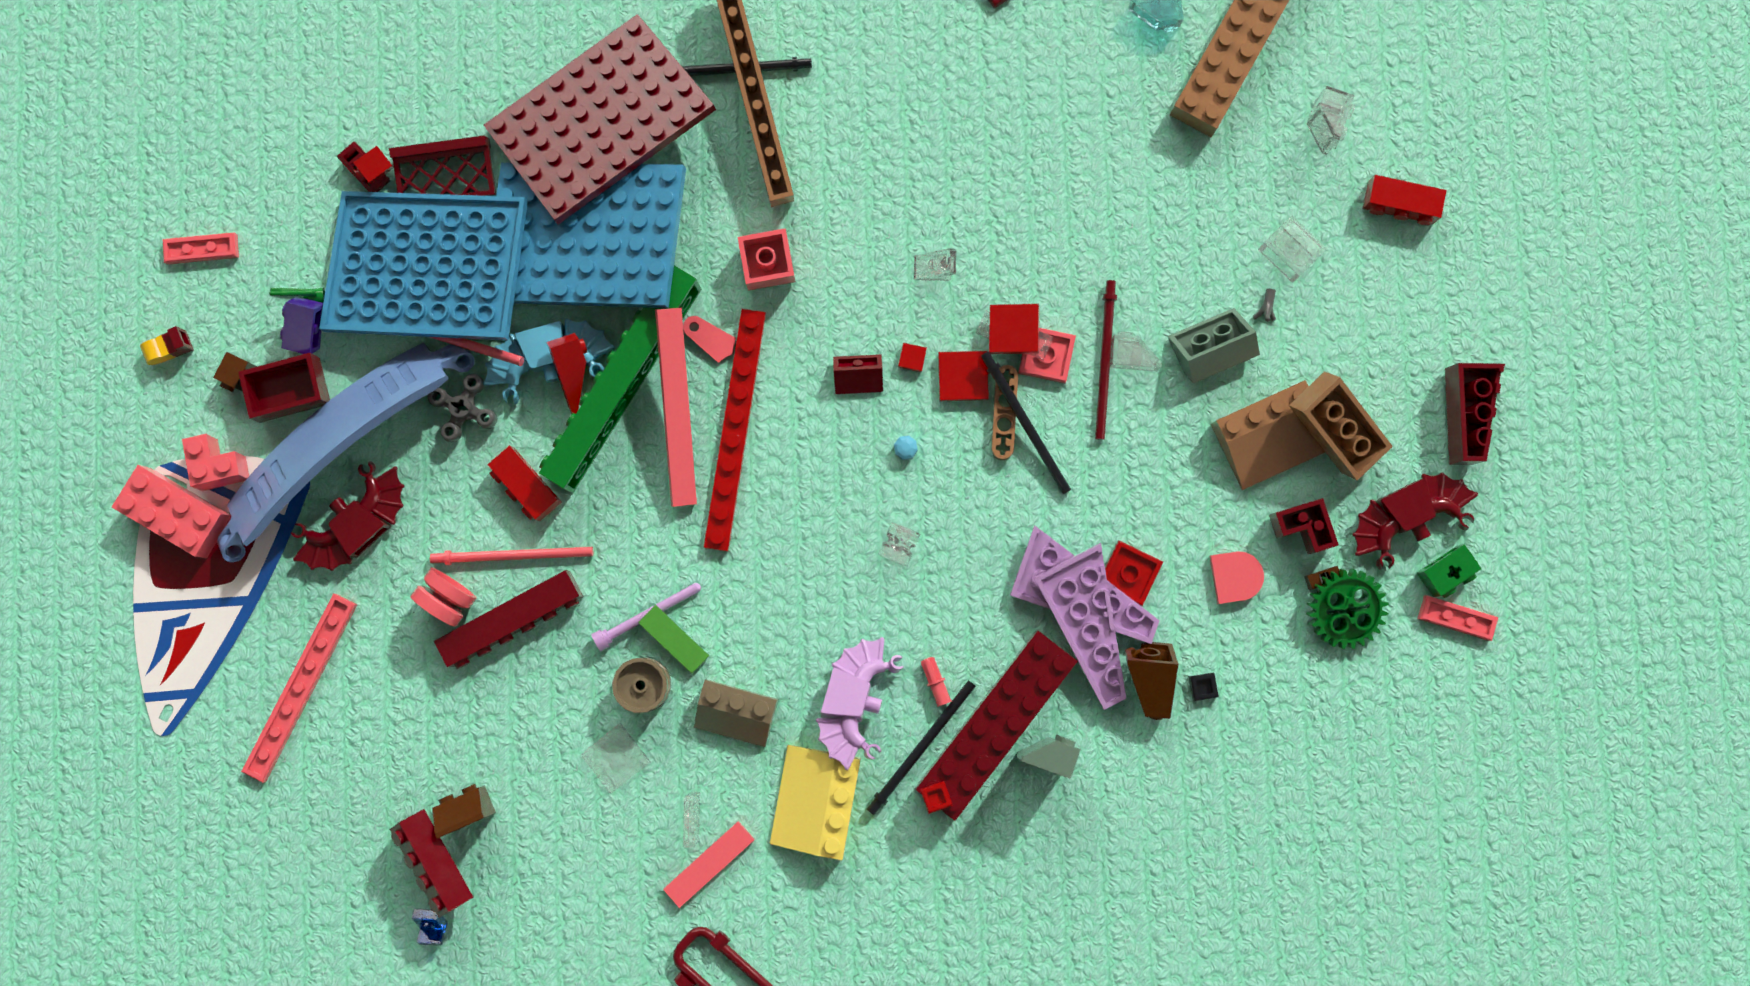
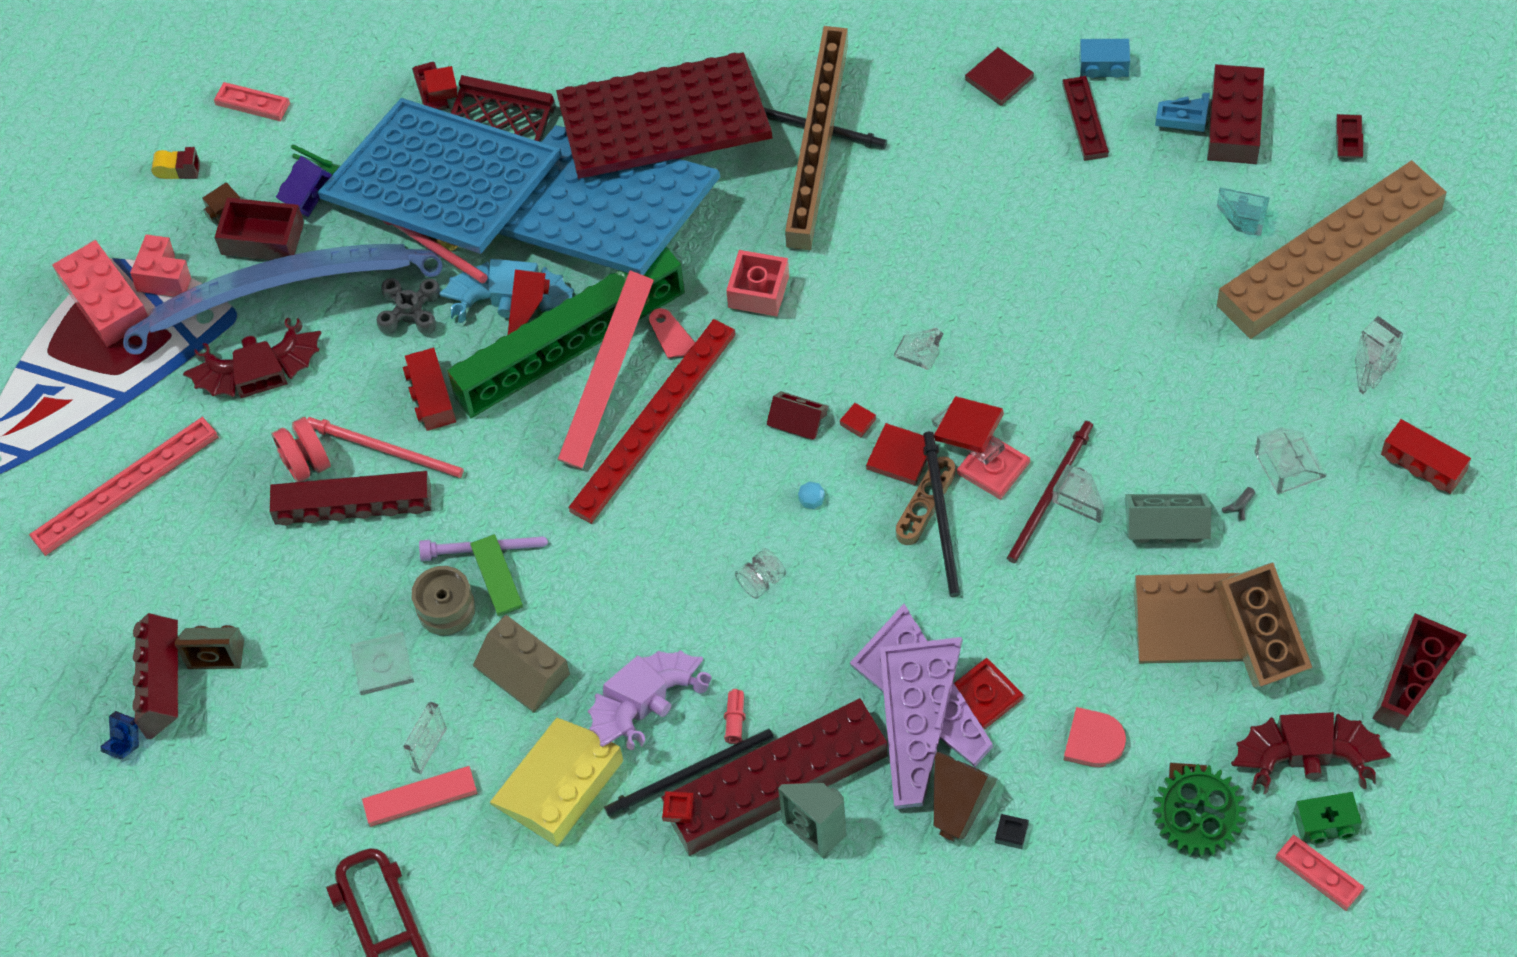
camera: 25 degrees right, 25 degrees down
(1311, 521) = (1187, 704): dark red brick -> none

